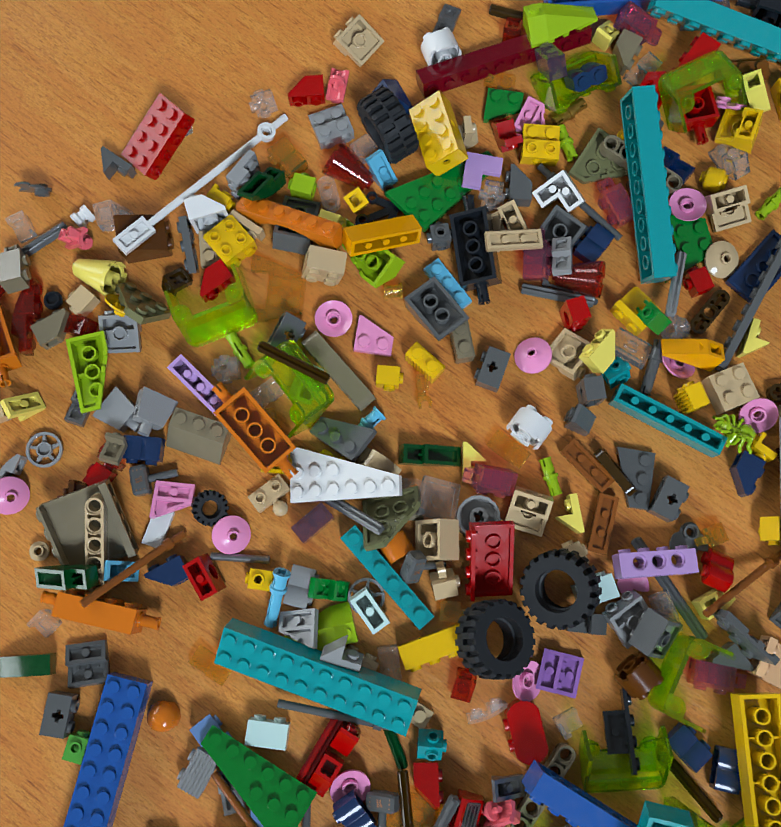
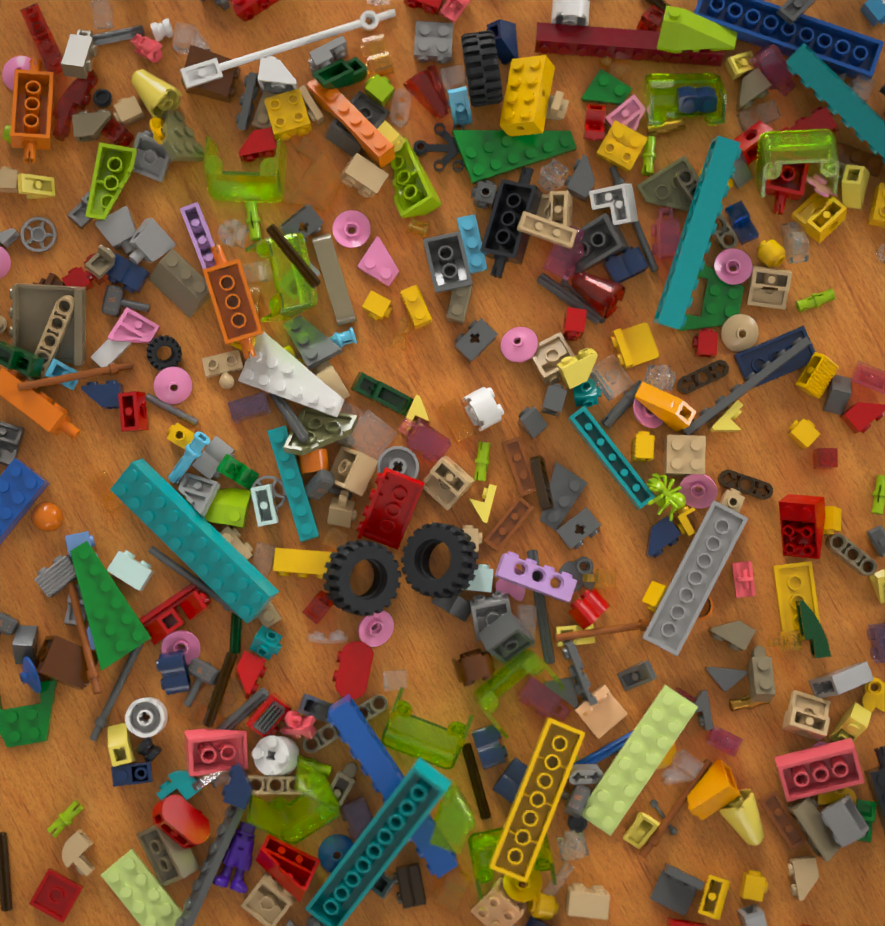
camera: 20 degrees right, 5 degrees up
(176, 281) = (222, 129): dark brown bracket -> none
(221, 197) = (297, 68): yellow brick -> none
(337, 655) = (219, 530): light grey slope -> none
(356, 200) = (422, 126): yellow brick -> none
(381, 235) = (428, 171): light orange brick -> none
(480, 165) = (550, 142): lavender tile -> none
(551, 61) = (667, 72): brick -> none
(559, 673) = (408, 635): medium lavender slope -> none
(562, 256) = (588, 264): light grey slope -> none
(619, 732) = (433, 706): black bracket -> none
(653, 317) = (643, 358): green brick -> none
(675, 285) = (681, 336): light grey axle -> none

